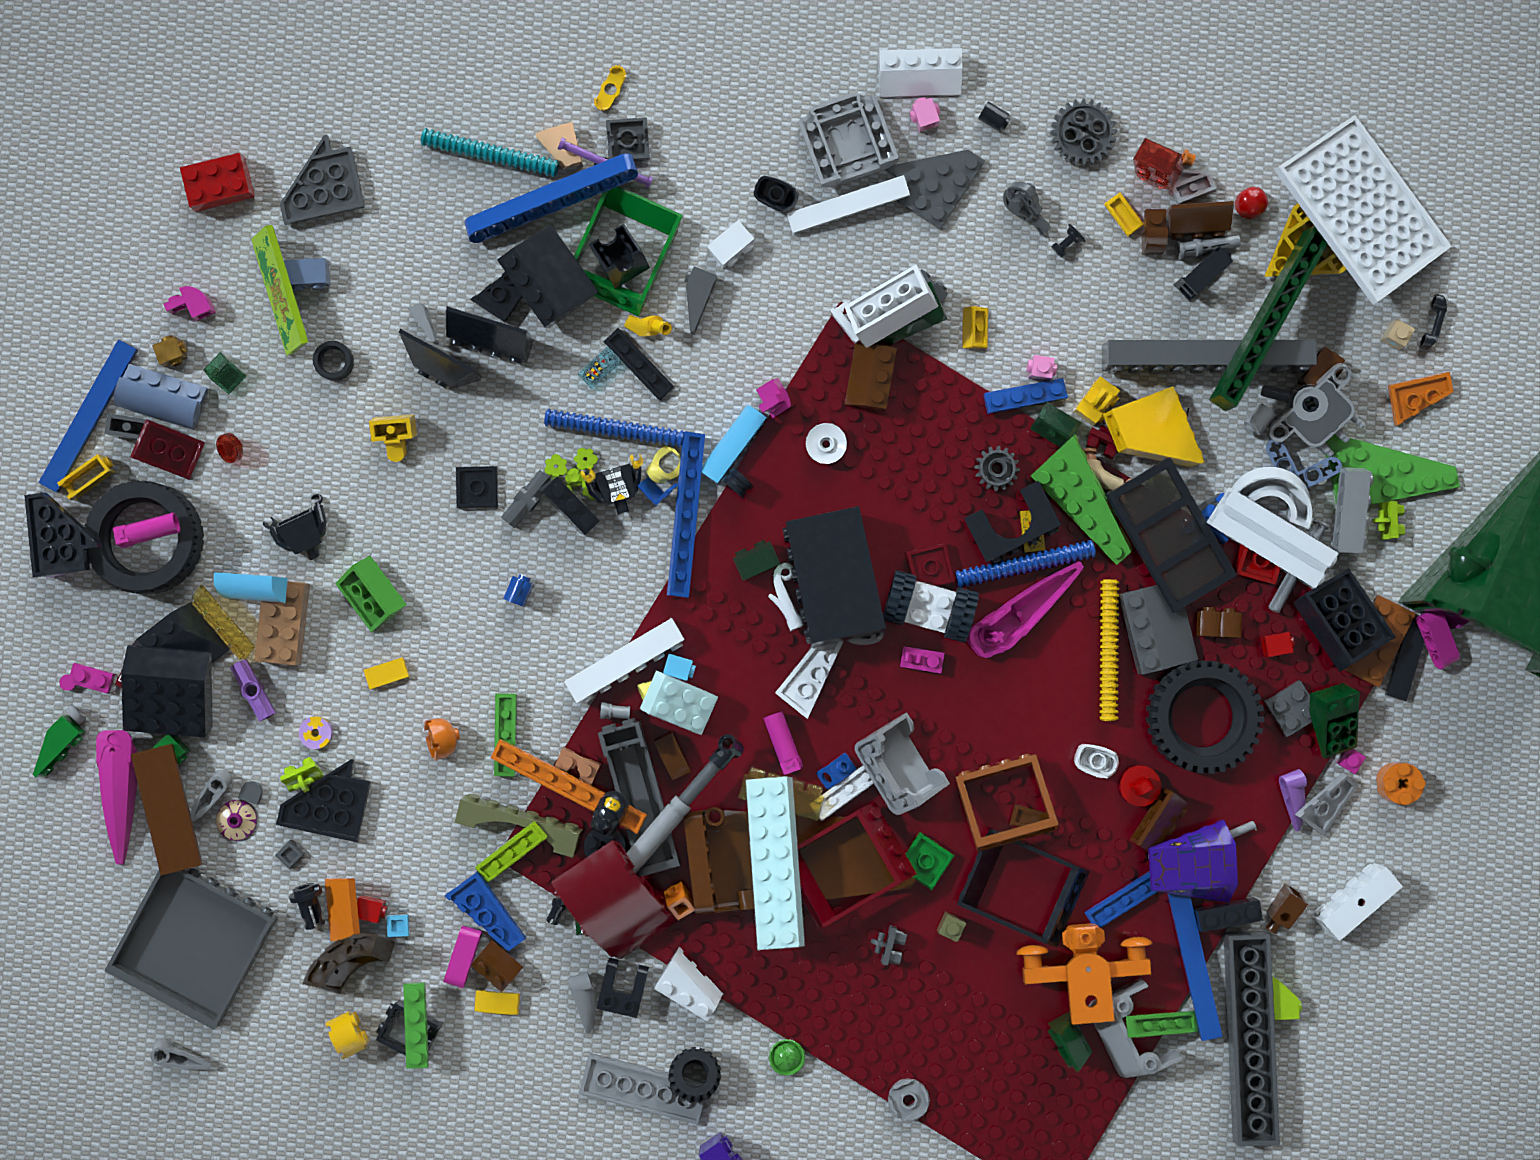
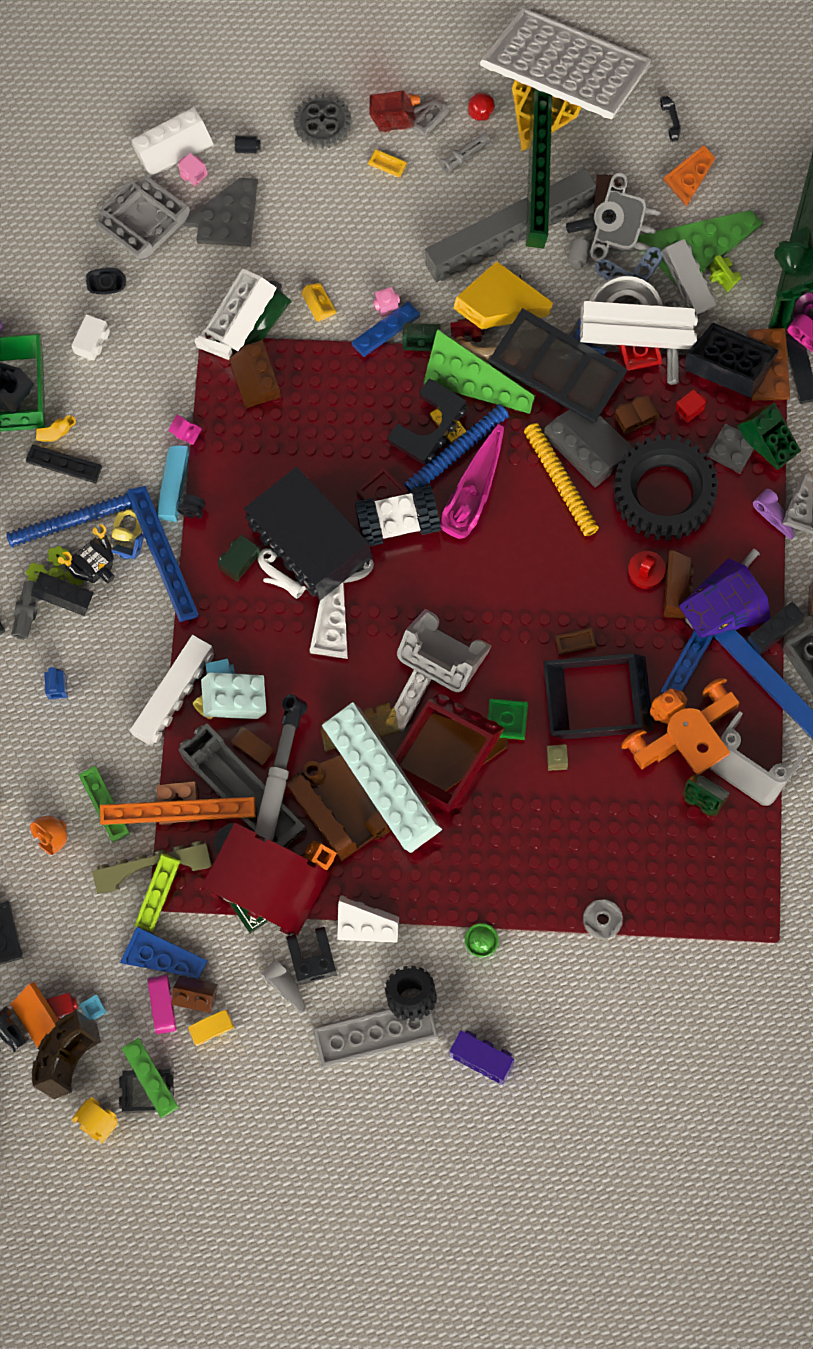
camera: 20 degrees left, 15 degrees down
(556, 911) = (221, 916): black pin -> none
(599, 367) = (33, 482): clear light blue tile -> none
(609, 813) = (222, 809): black piece -> none
(610, 711) = (179, 737): light grey pin -> none
(699, 289) = (82, 382): dark grey slope -> none
(783, 743) = (336, 685): dark pink piece -> none
(830, 433) = (243, 434): white dish -> none
(838, 770) = (395, 683): blue bracket -> none
(848, 204) = (167, 262): white tile -> none
(893, 936) = (519, 808): dark grey hips -> none
(922, 659) = (415, 565): dark pink plate -> none
(1002, 458) = (393, 400): dark grey gear -> none
(1017, 833) = (562, 653): dark orange window -> none
(1025, 204) = (306, 192): dark grey pin -> none
(1073, 236) = (356, 195): black piece -> none
(1096, 760) = (599, 565): white piece -> none
(1097, 400) = (443, 303): yellow brick -> none
(1155, 232) = (419, 162): reddish brown brick -> none
(1161, 1024) = (773, 741): bright green plate -> none
(1199, 219) = (446, 134): reddish brown slope -> none
(1204, 273) = (472, 170): black window -> none
(1351, 760) = (803, 465): dark pink plate -> none
(1397, 334) = (648, 139): tan brick -> none

